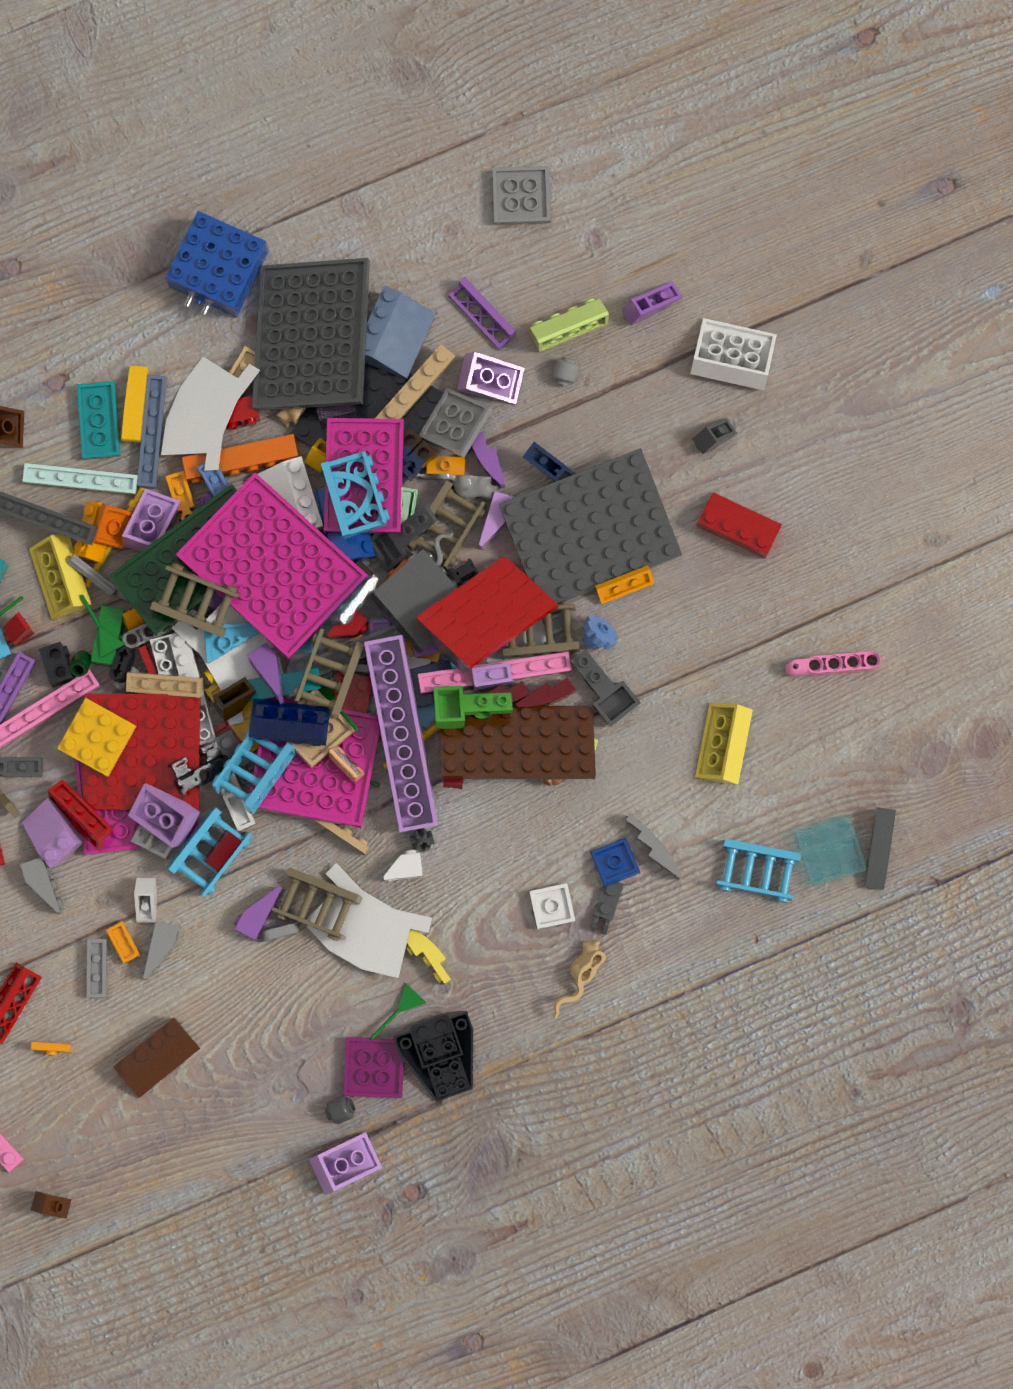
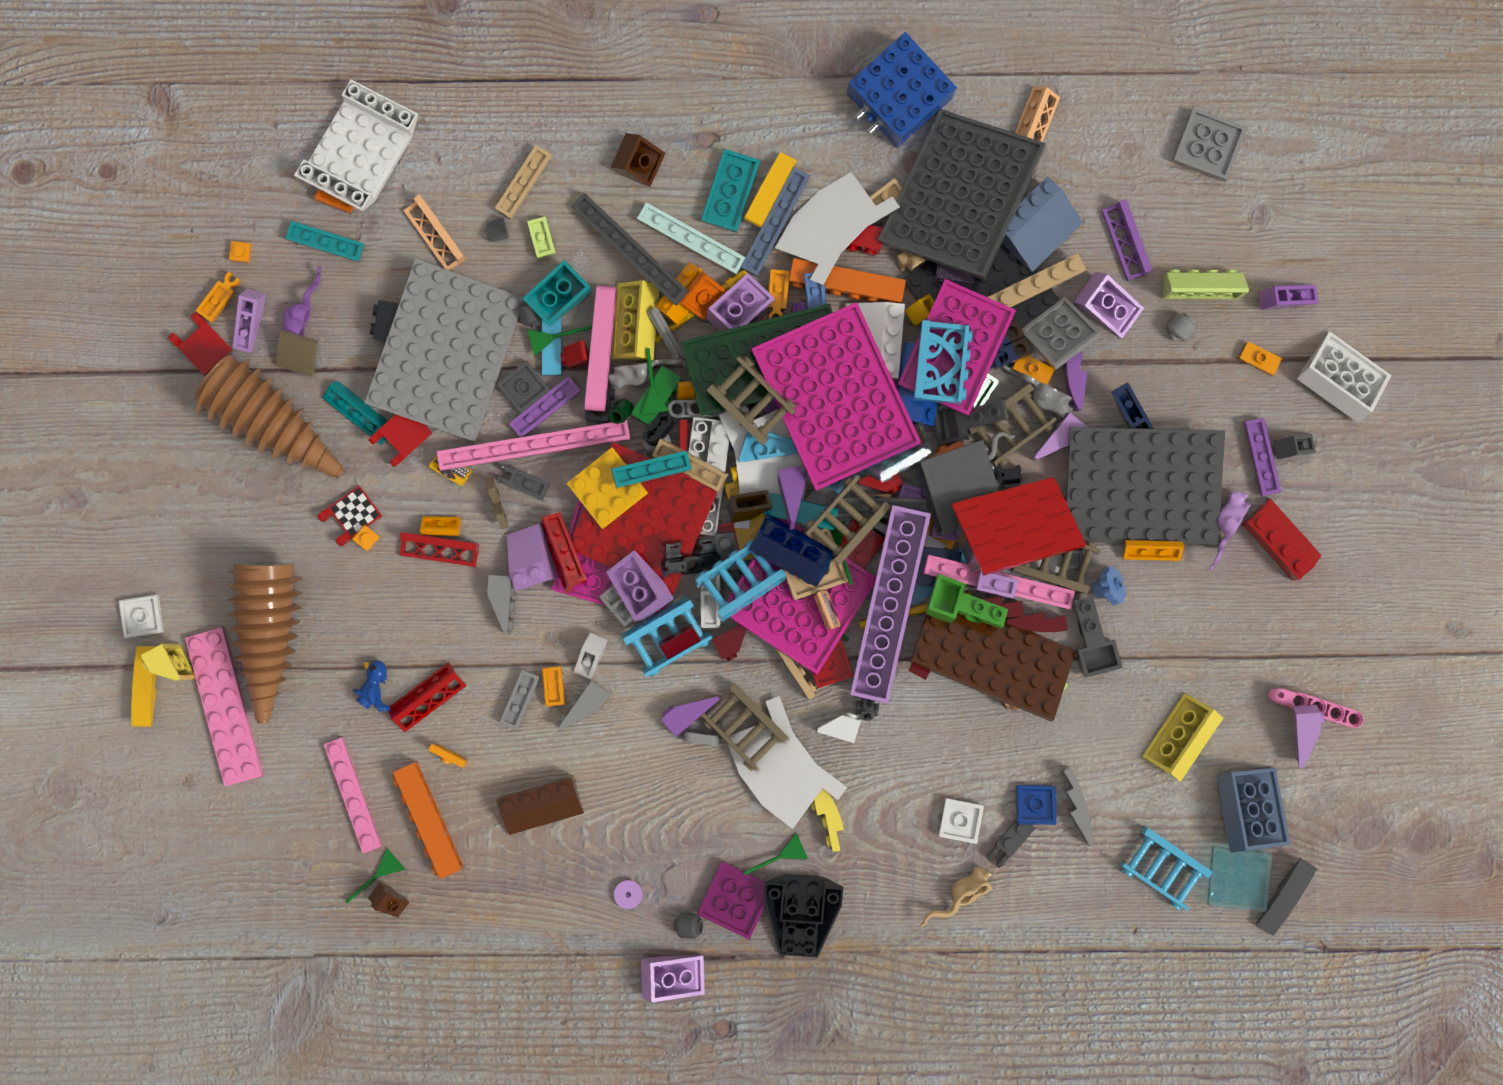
camera: 15 degrees right, 5 degrees up
(37, 1174) = (388, 865): none -> green piece
(38, 613) = (600, 348): none -> bright pink beam
(57, 1114) = (428, 820): none -> orange brick
(80, 623) = (637, 372): none -> light grey animal
(129, 702) = (651, 469): none -> teal plate
(270, 832) = (730, 642): none -> dark red slope
(272, 1105) = (628, 894): none -> lavender piece
(347, 230) = (1034, 108): none -> light nougat fence
(376, 815) = (835, 668): none -> red plate
(650, 369) = (1260, 358): none -> light orange plate
(682, 526) = (1230, 519): none -> lavender animal
(689, 457) = (1262, 457): none -> medium lavender plate
(815, 781) = (1253, 810): none -> sand blue slope
(831, 686) = (1307, 729): none -> lavender slope

